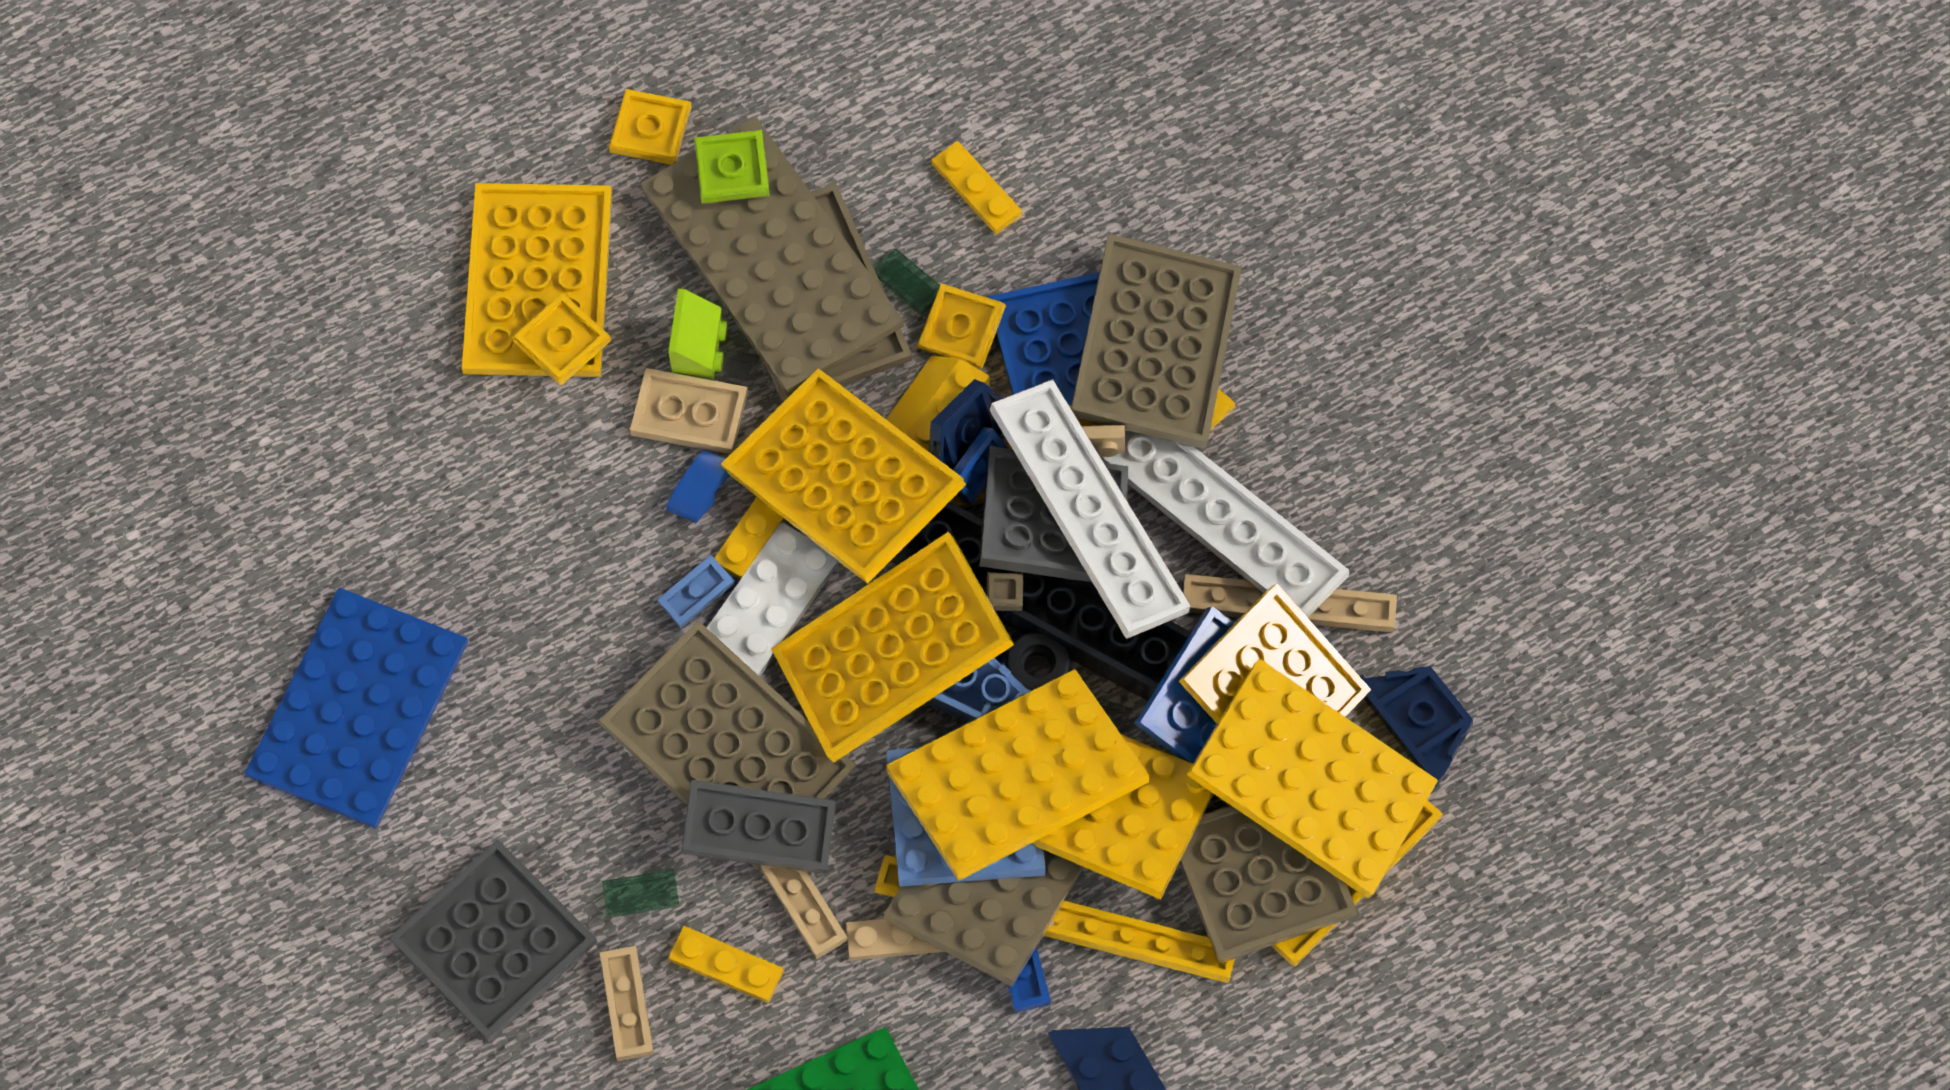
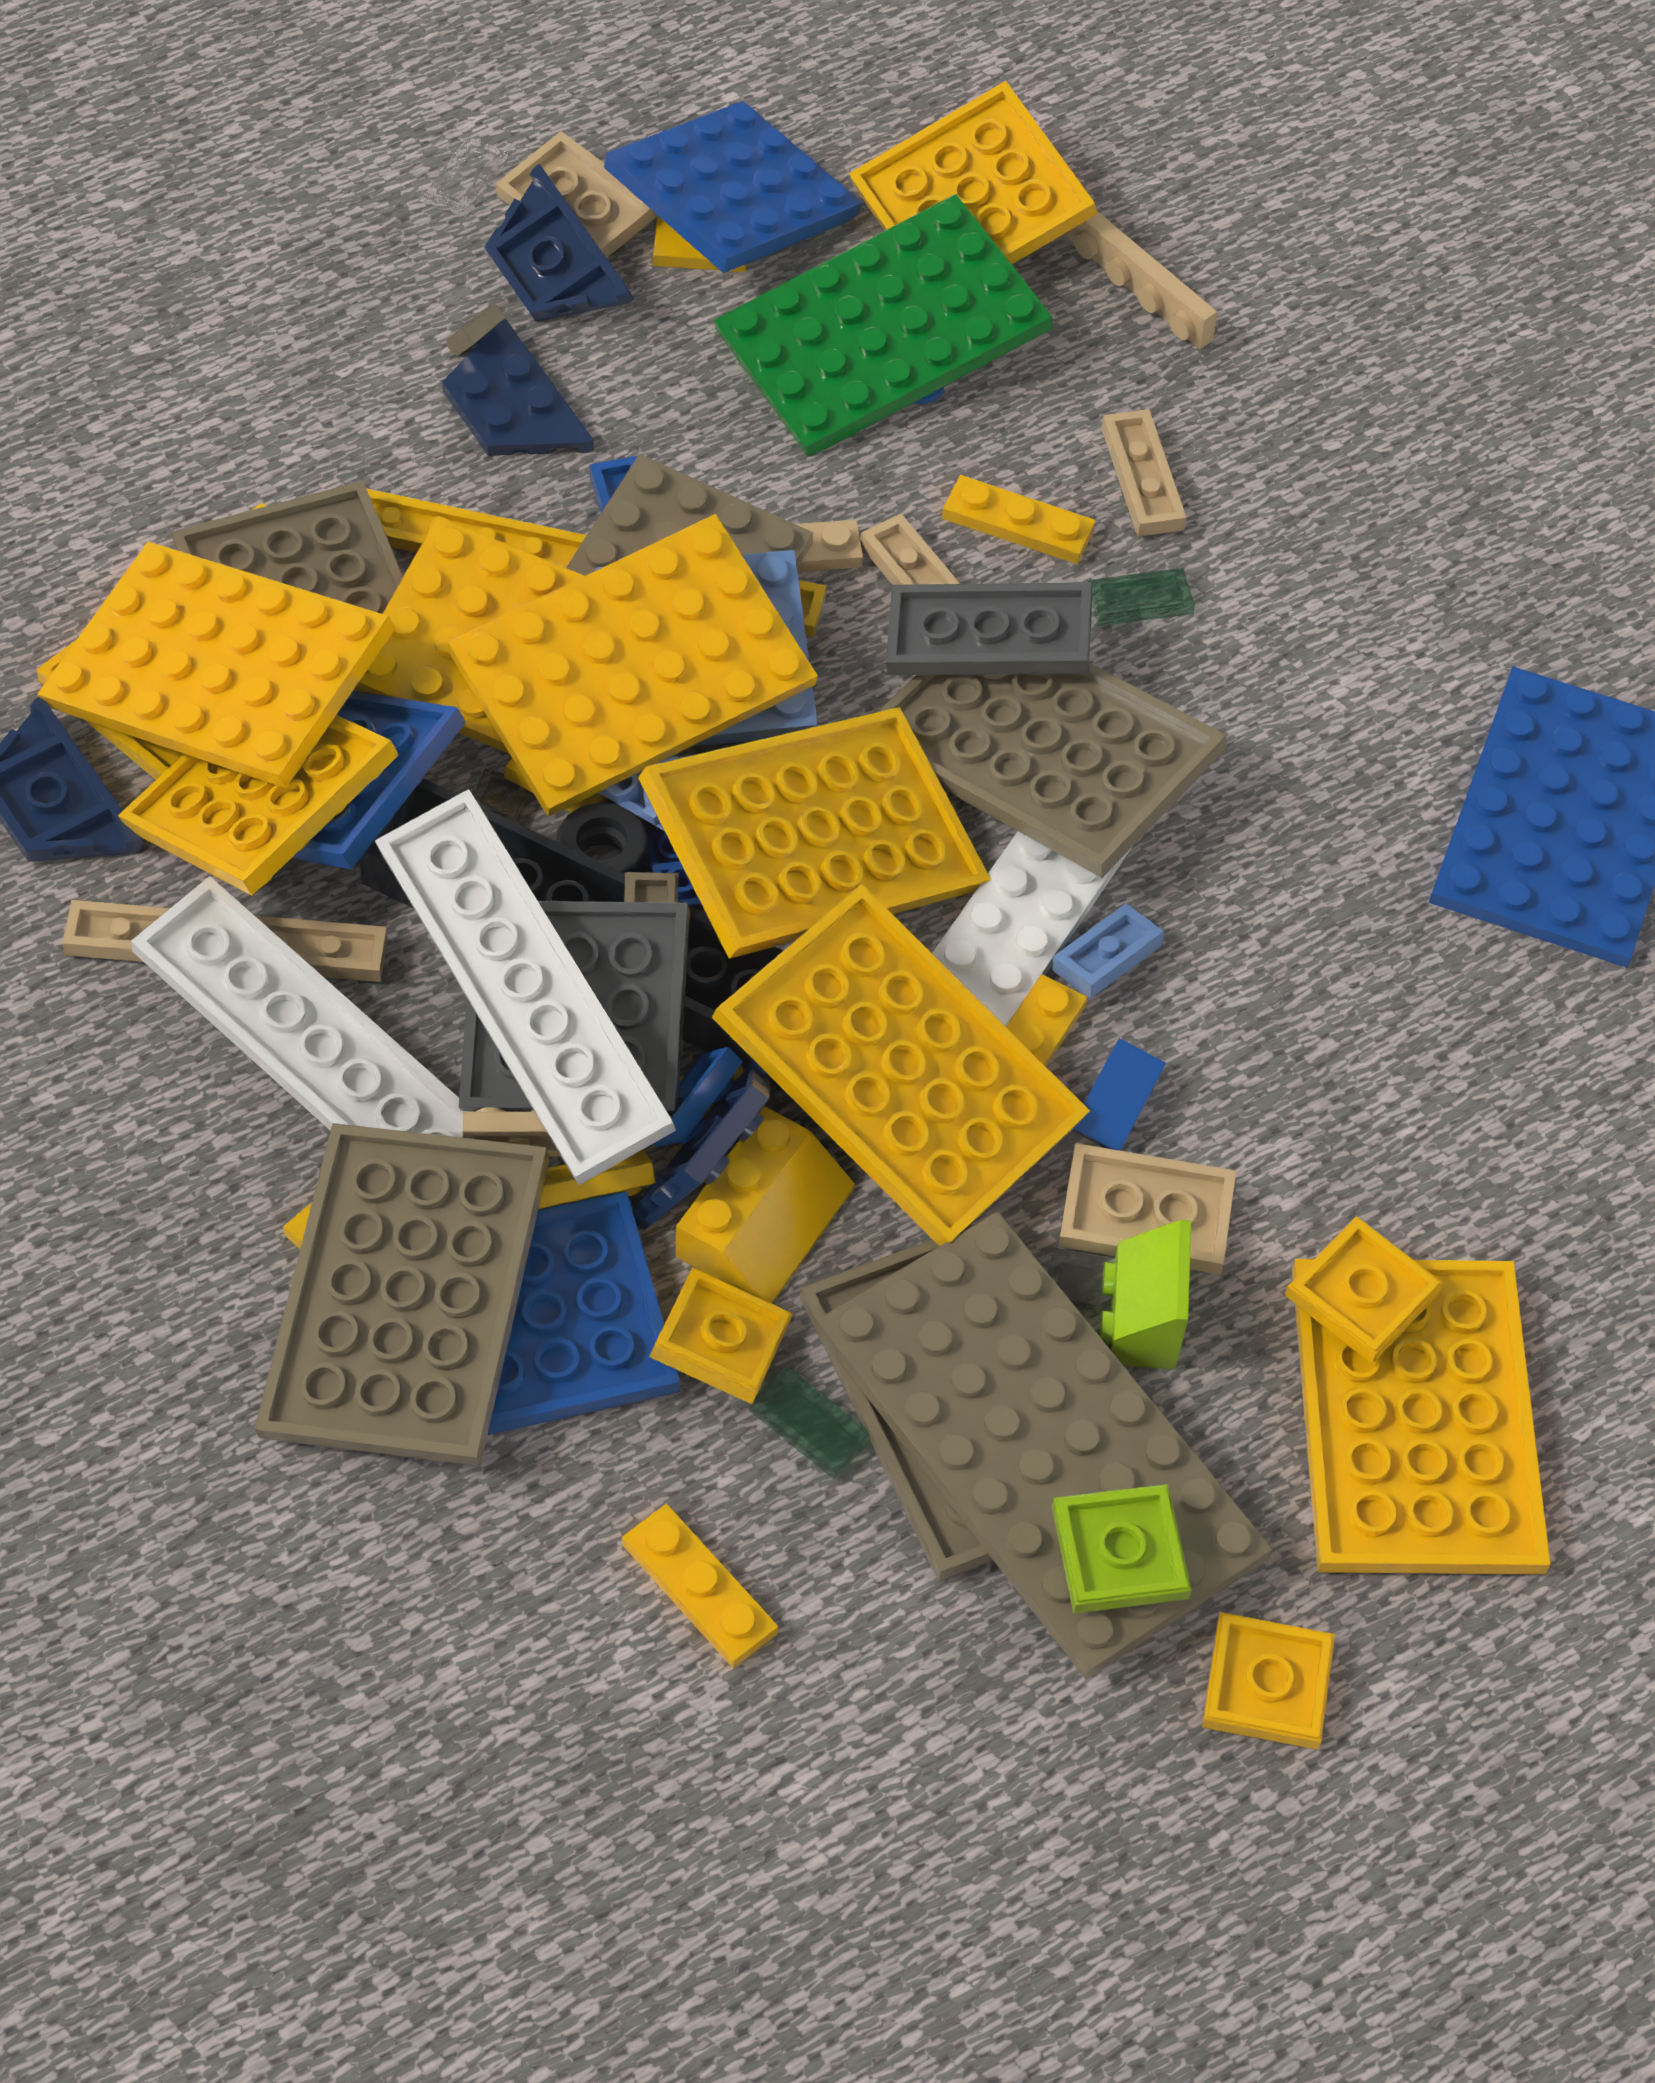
camera: 175 degrees right, 10 degrees down
(493, 940) = (1328, 540): dark grey plate -> none

